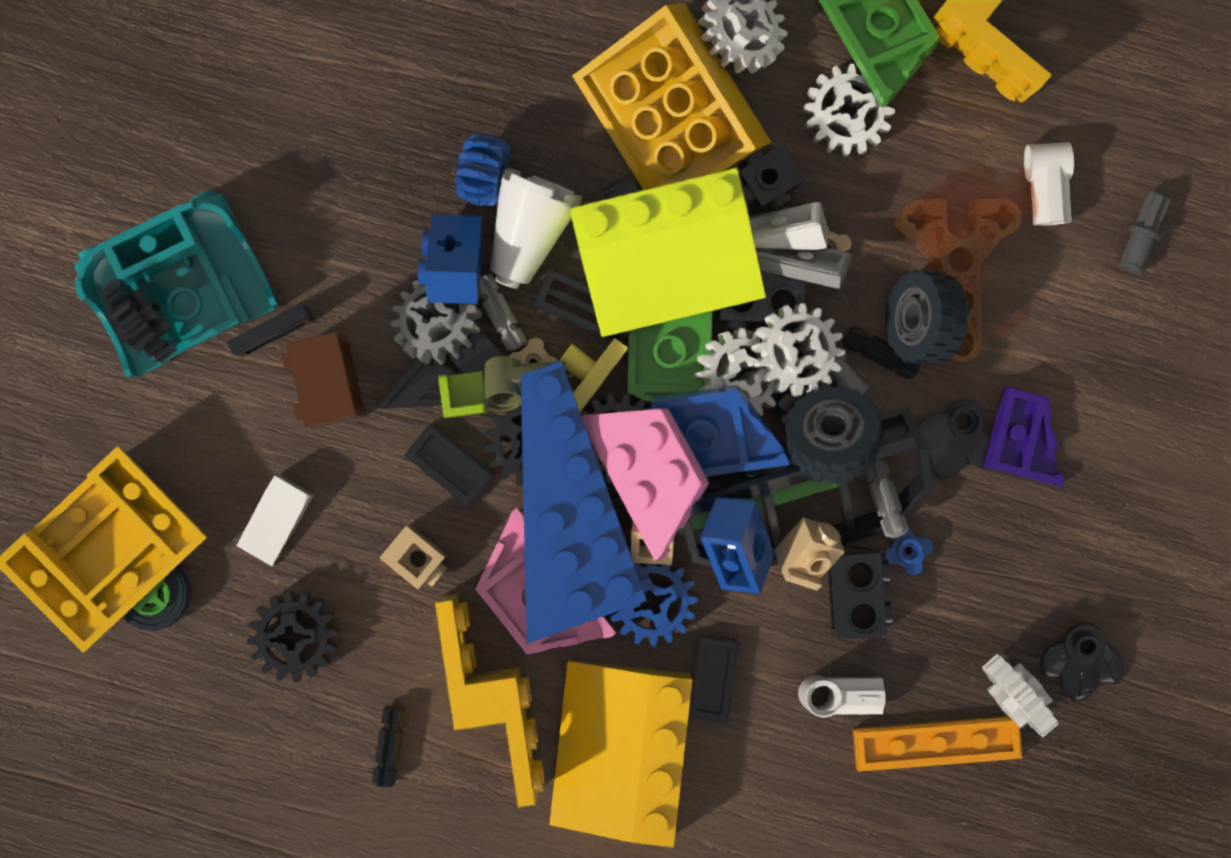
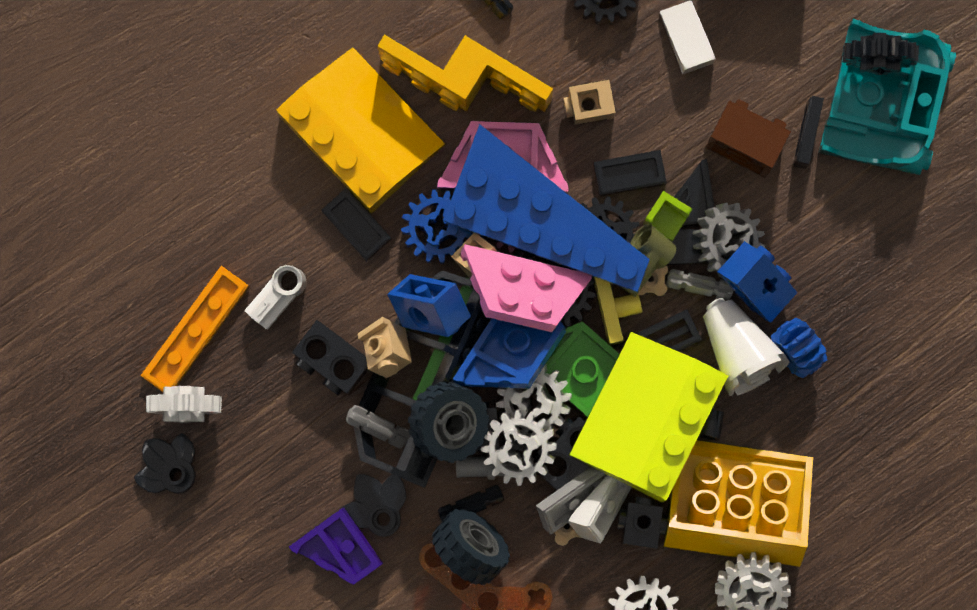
camera: 130 degrees right, 5 degrees down
(912, 562) = (322, 411): blue plate -> none

